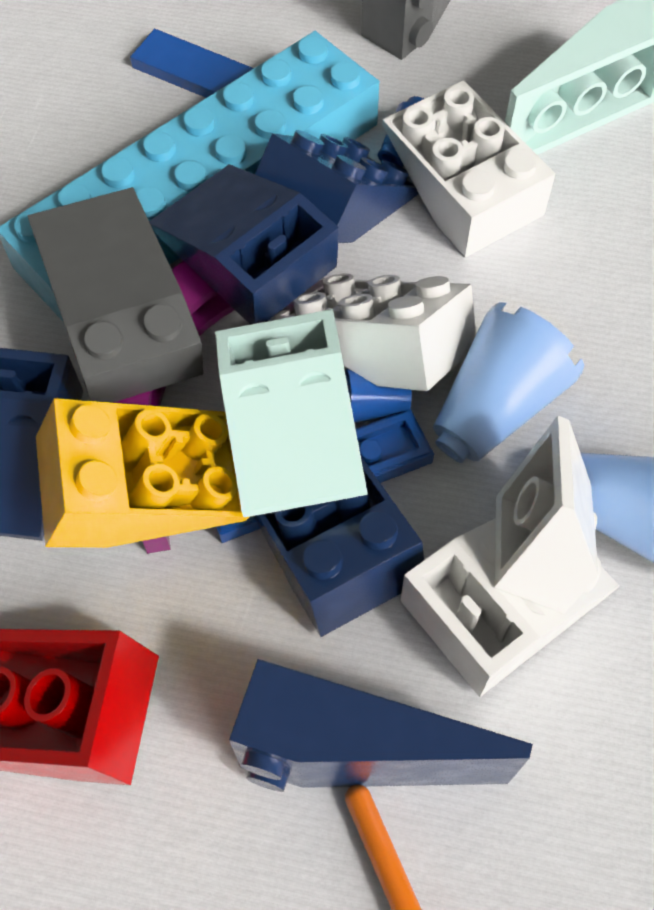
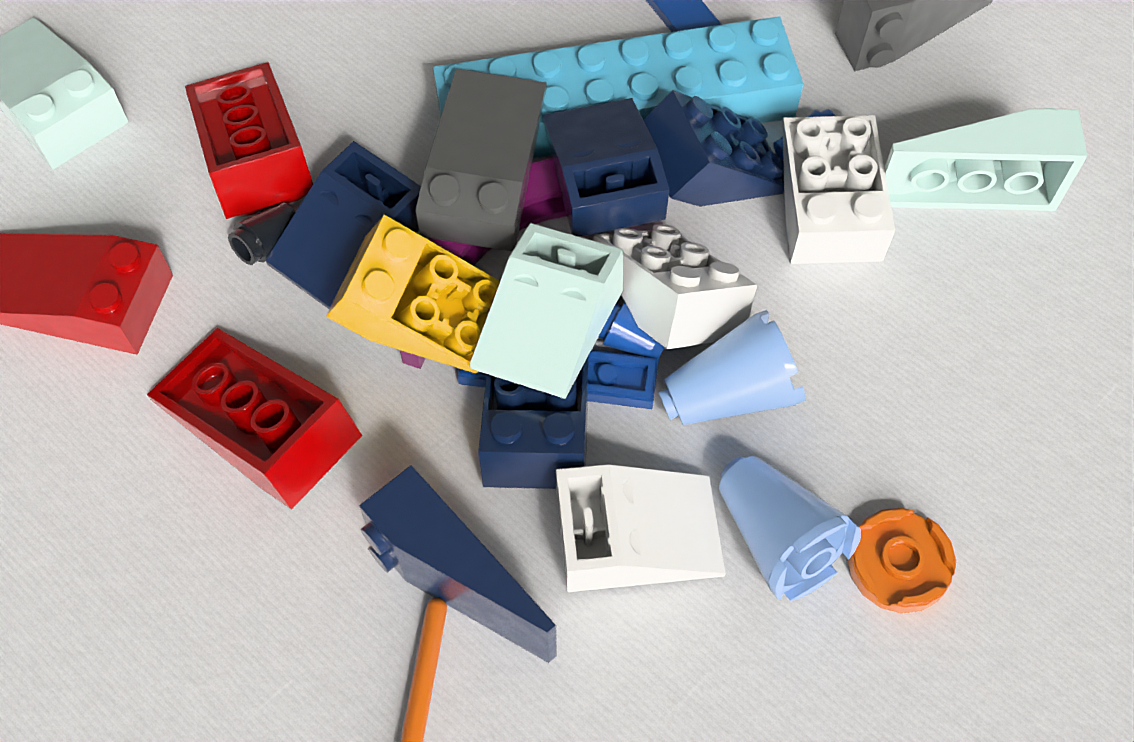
camera: 30 degrees right, 0 degrees up
(547, 524) = (686, 493): white slope -> none

